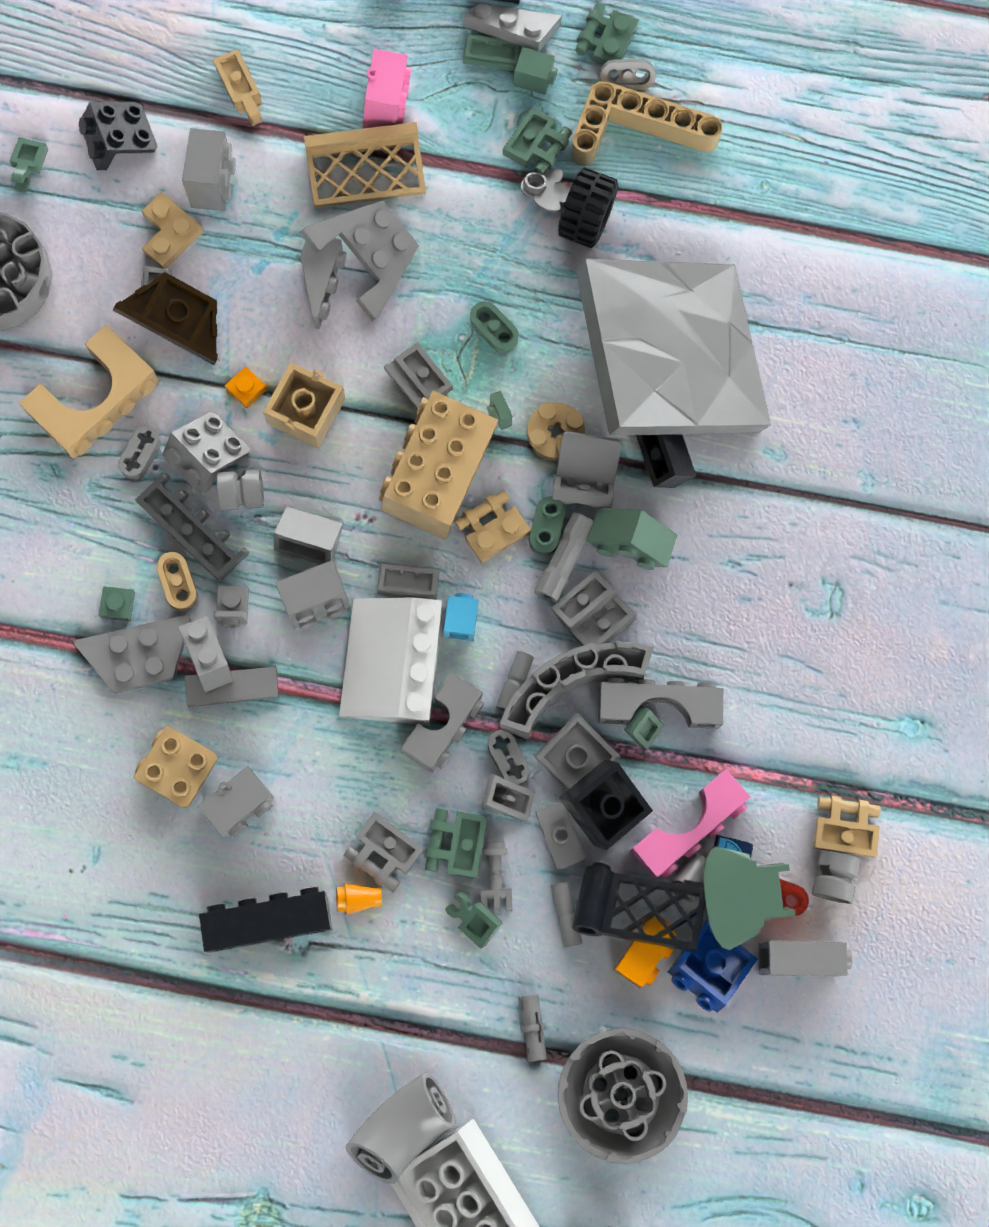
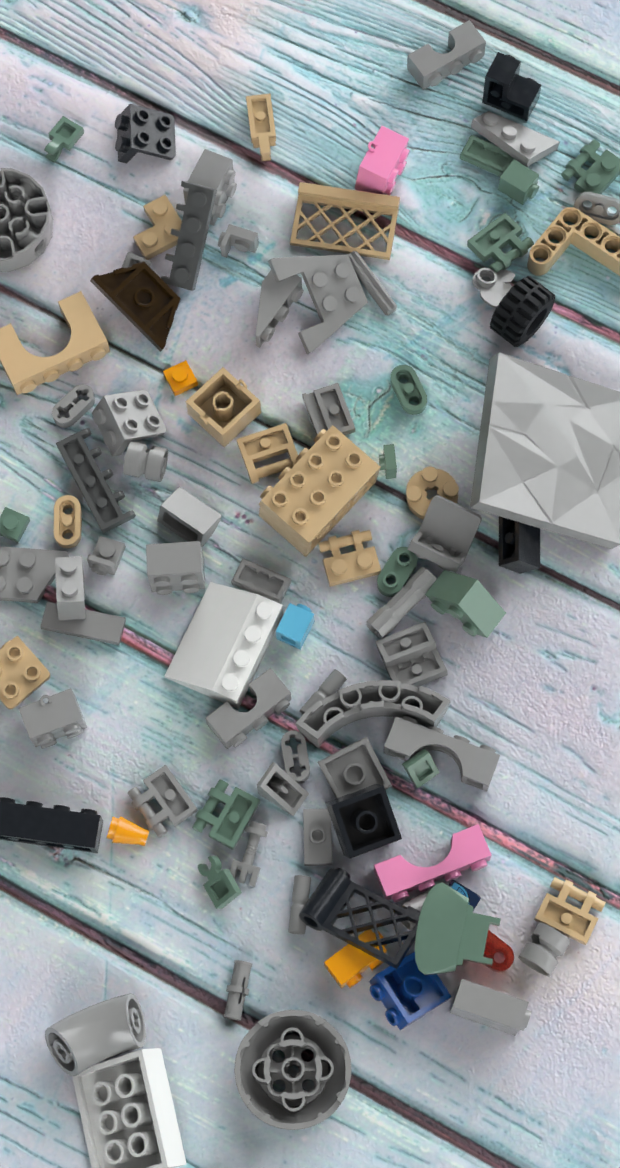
camera: 25 degrees right, 5 degrees down
(206, 228) = (191, 236): none -> dark grey hinge
(259, 216) = (240, 238): none -> light grey bracket
(364, 432) = (264, 446): none -> tan plate
(418, 225) = (372, 284): none -> light grey axle

